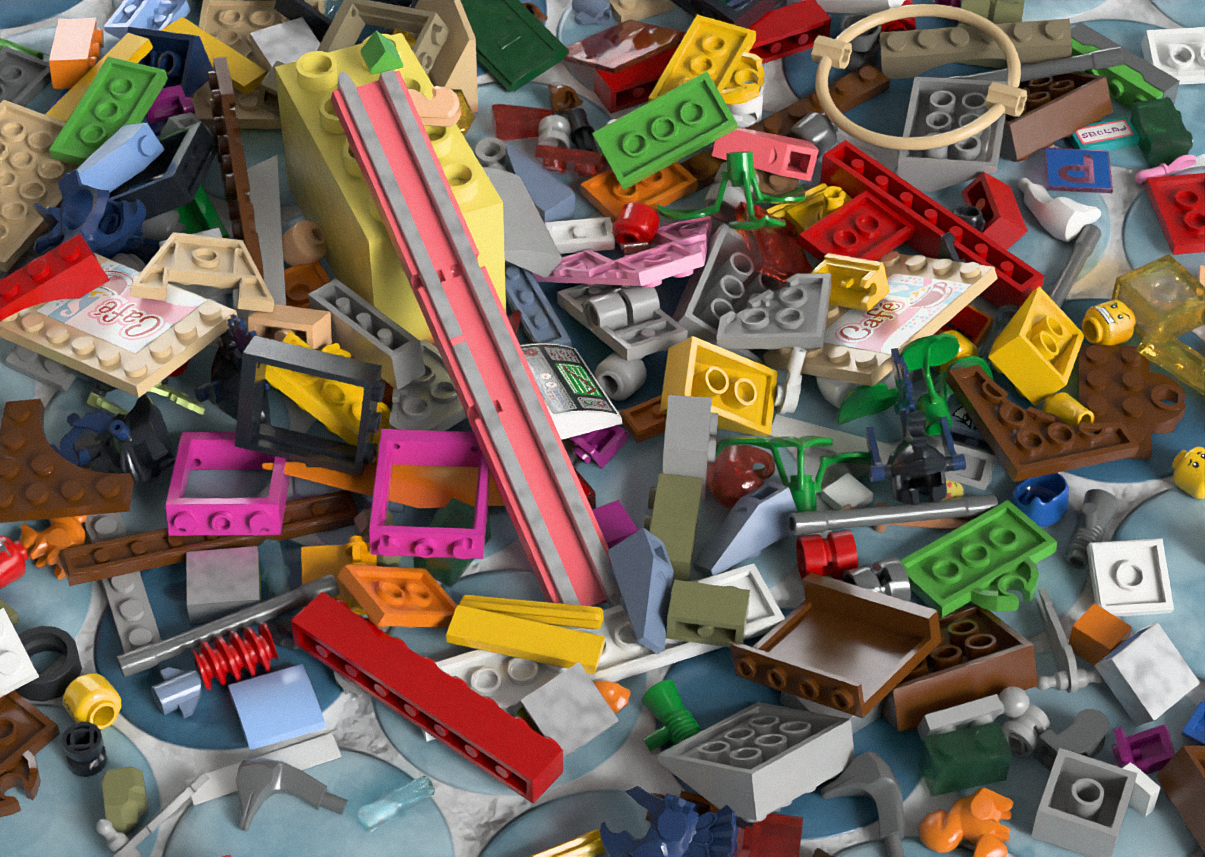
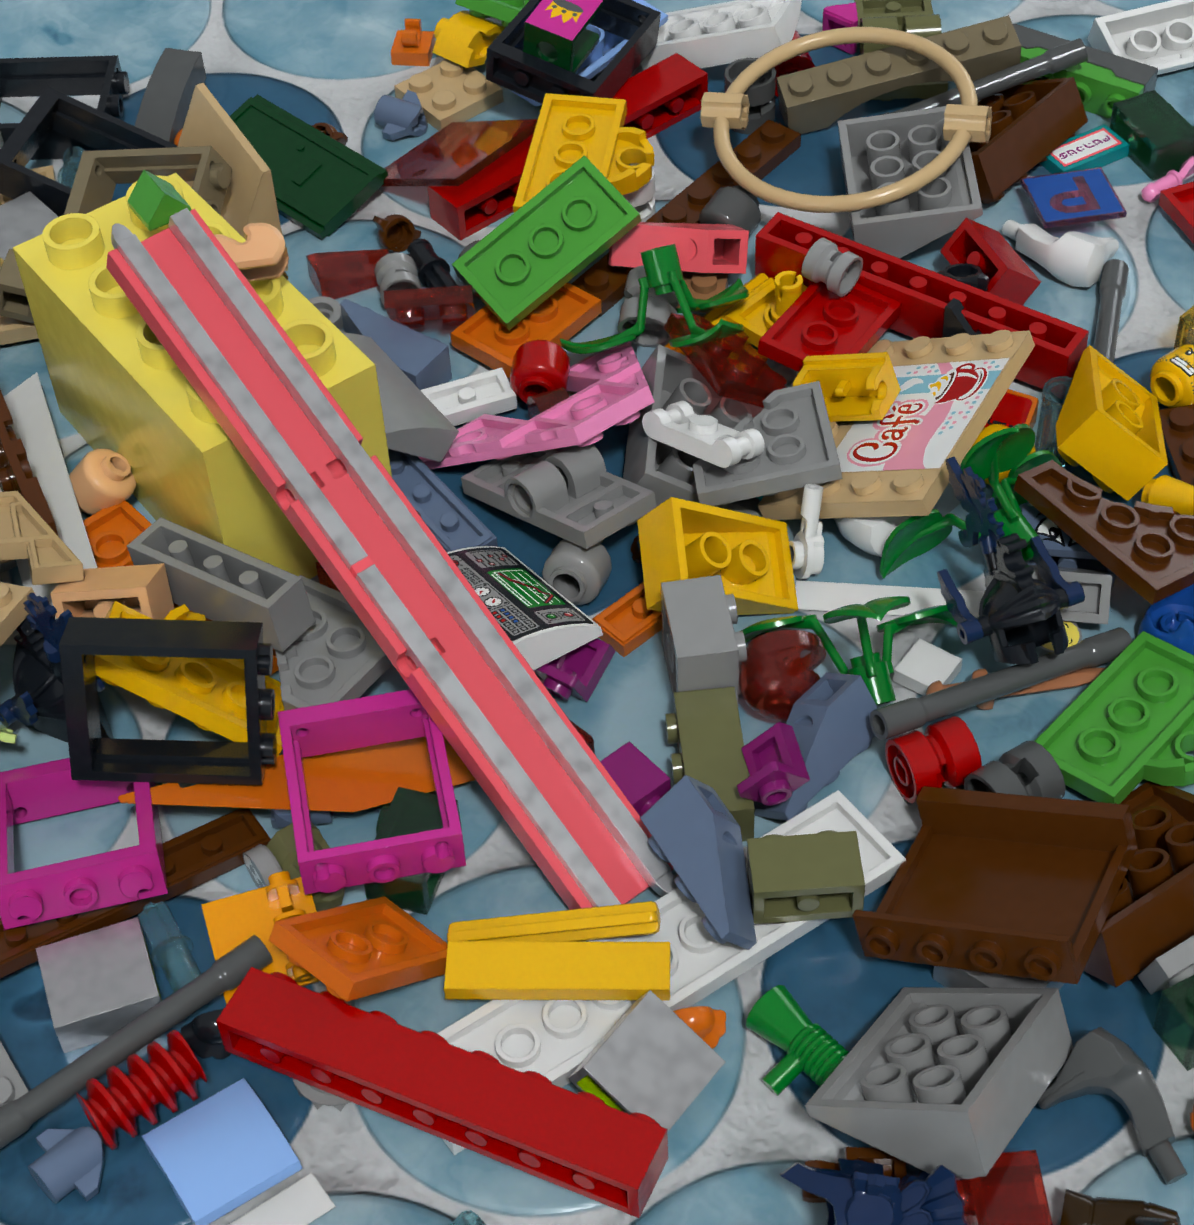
camera: 10 degrees left, 0 degrees up
(347, 527) = (261, 864): none -> light grey tile
(711, 536) = (773, 766): none -> magenta bracket
(731, 296) = (701, 435): none -> white plate
(866, 188) = (832, 267): none -> light grey wheel

